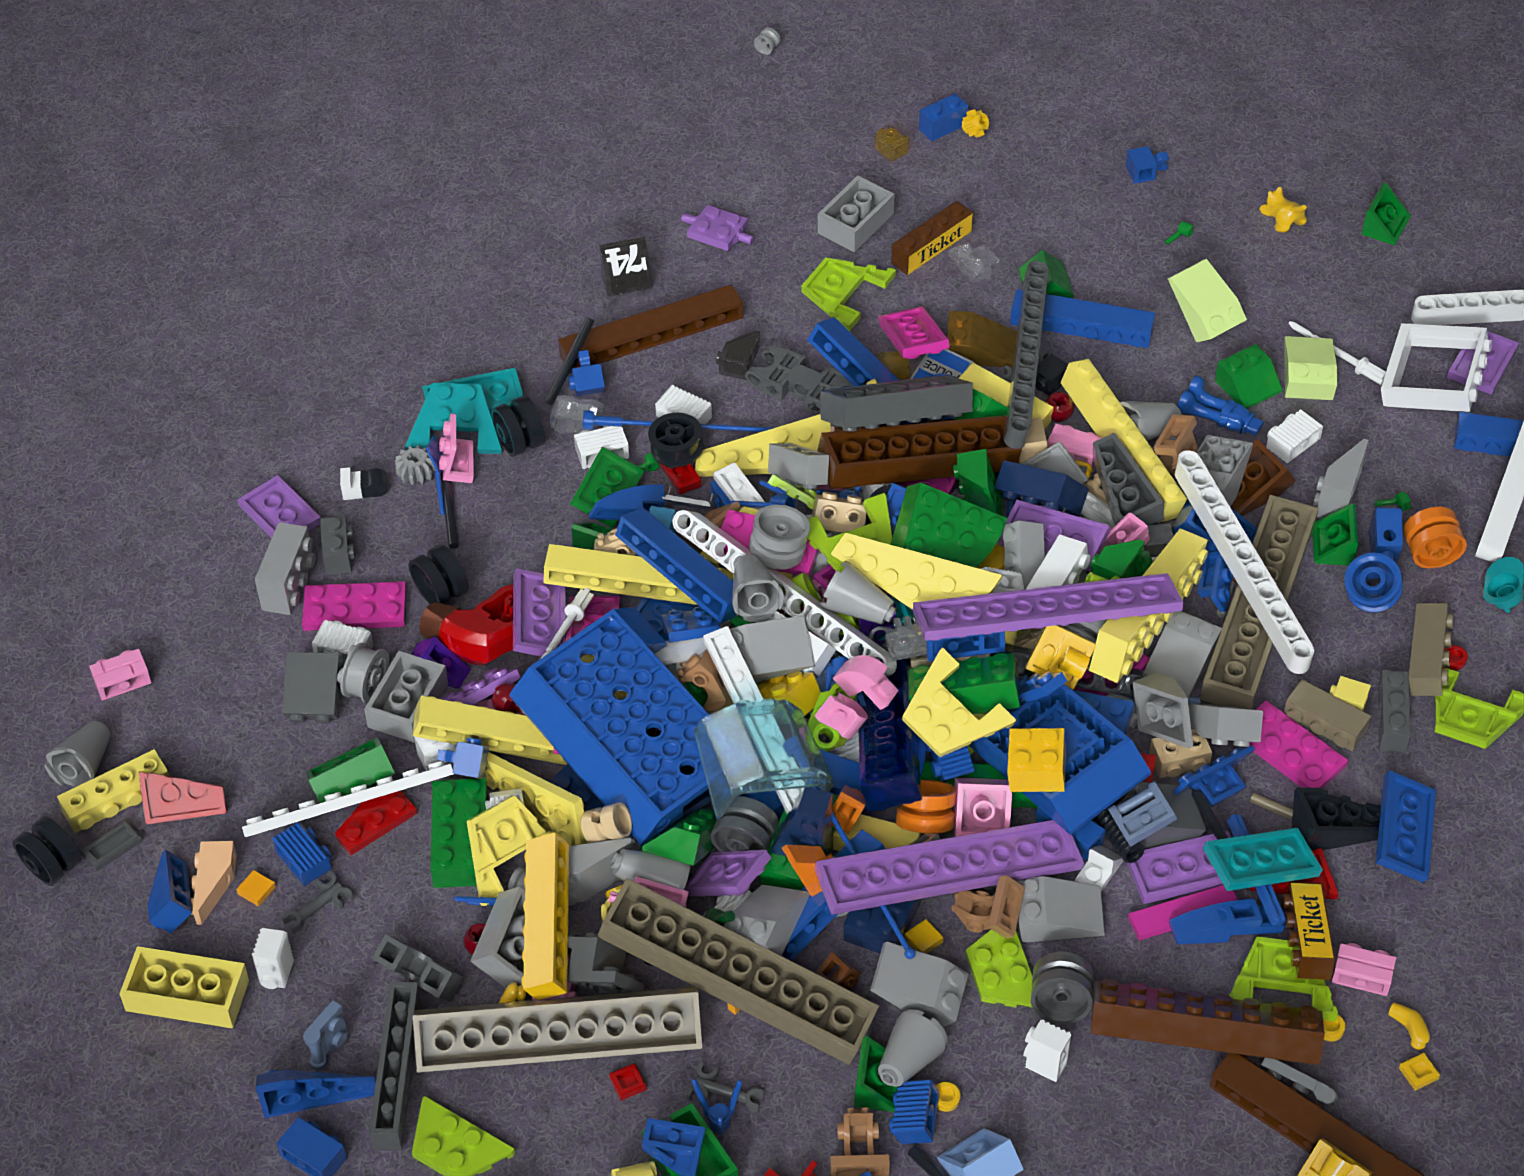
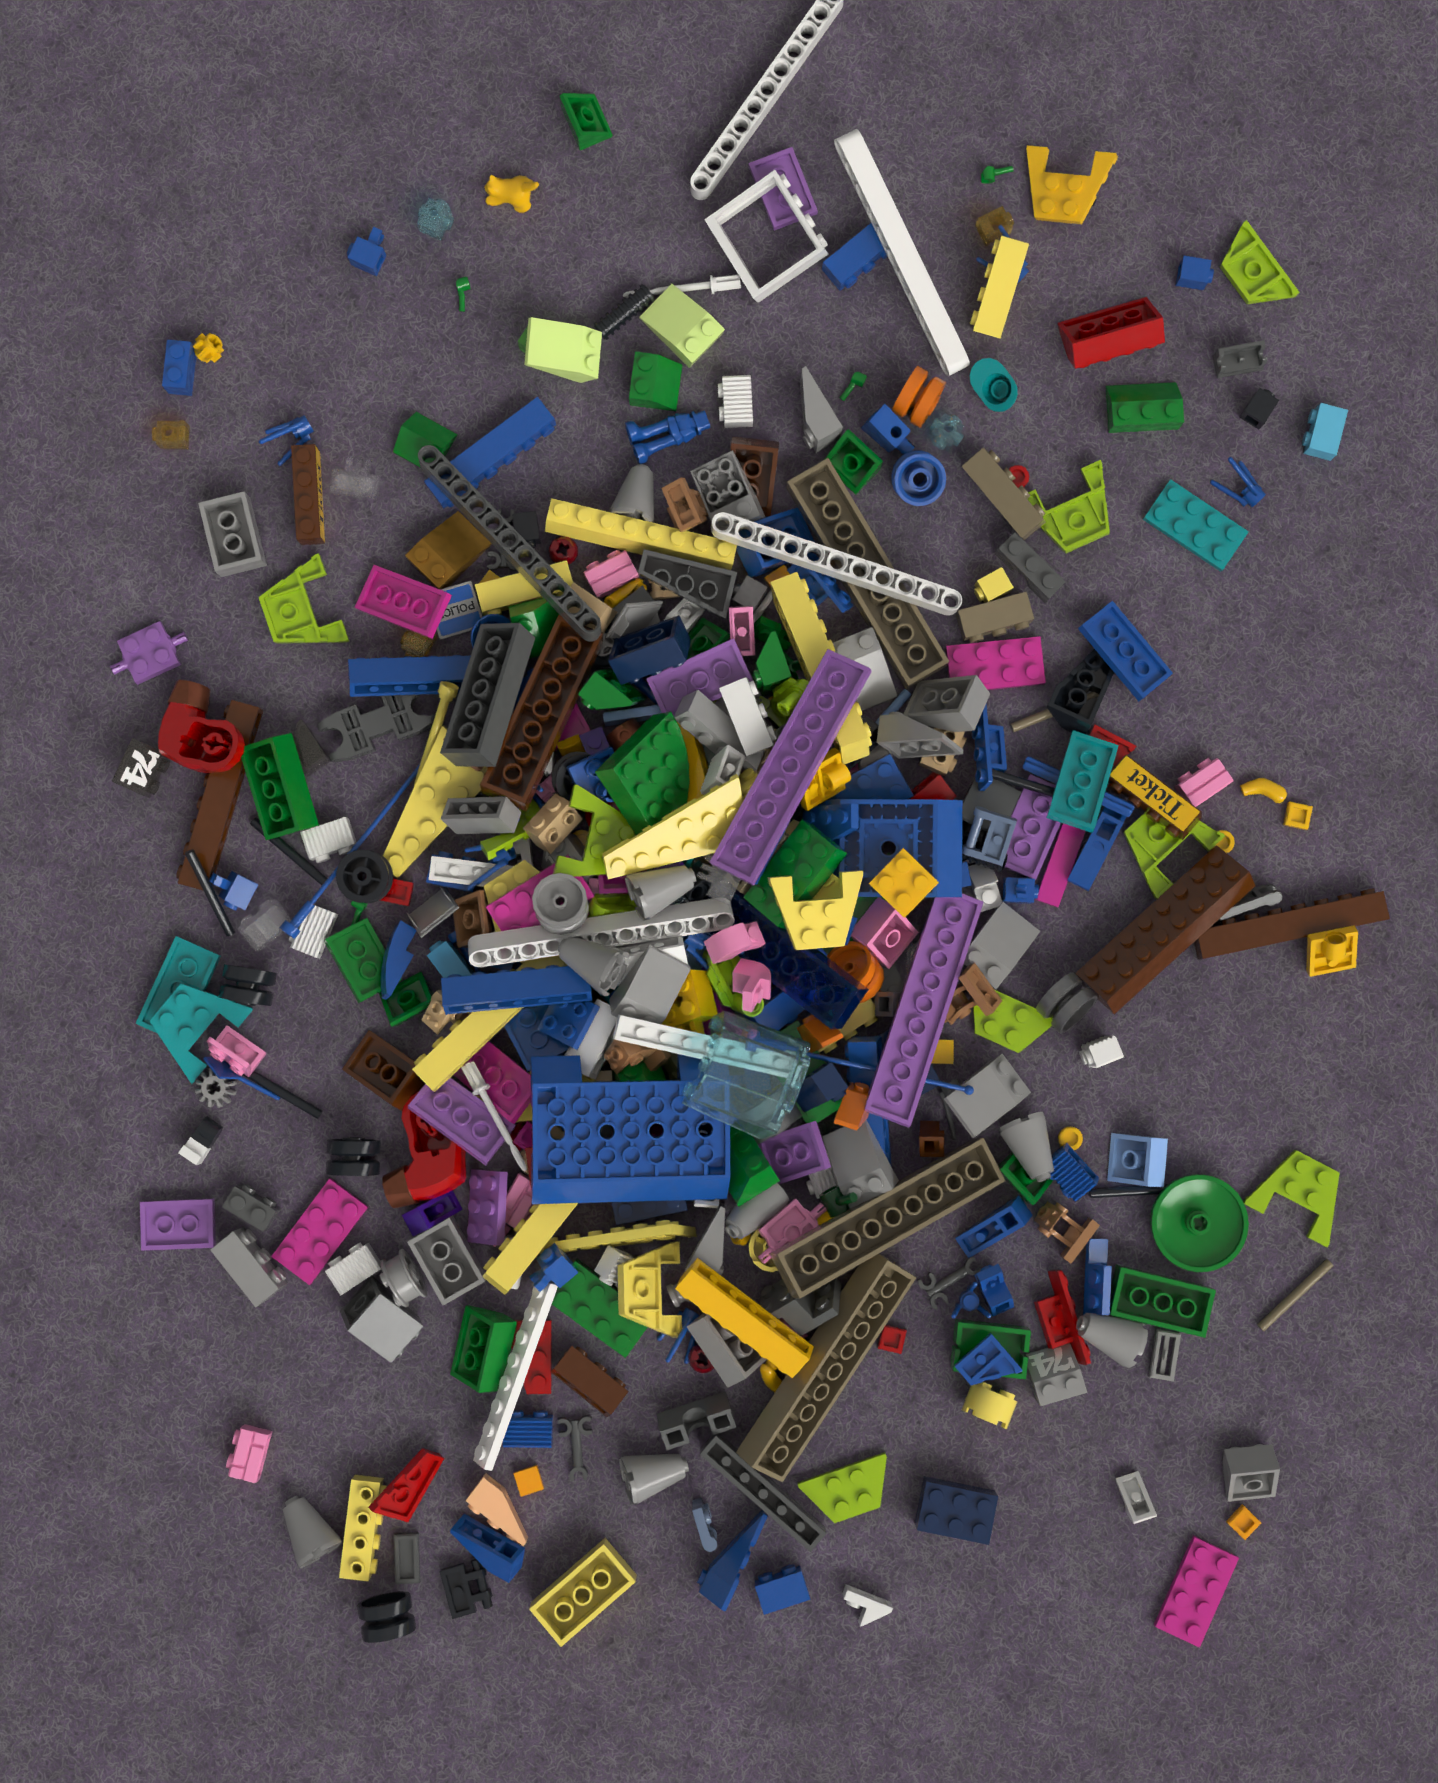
camera: 55 degrees left, 35 degrees up
(112, 898) = (458, 1589): none -> black plate
(272, 958) = (611, 1518): white brick -> none
(338, 966) = (650, 1474): none -> light grey cone
(386, 867) = (590, 1380): none -> reddish brown brick
(501, 699) = (519, 1196): dark red piece -> none
(526, 552) = (384, 1070): none -> reddish brown slope
(606, 823) = (697, 1215): tan wheel -> none
(649, 394) = (292, 854): none -> black bar
(688, 272) = (193, 739): none -> red piece
(694, 346) = (278, 786): none -> green brick
(750, 1123) = (994, 1290): none -> blue brick
(809, 1086) = (994, 1226): none -> blue slope
(974, 202) = (299, 427): none -> blue plant
(1122, 892) = (1019, 890): none -> blue brick
(1212, 181) = (435, 218): none -> clear light blue brick
(1277, 326) = (624, 311): none -> black piece
(1431, 580) = (944, 439): none -> clear light blue brick

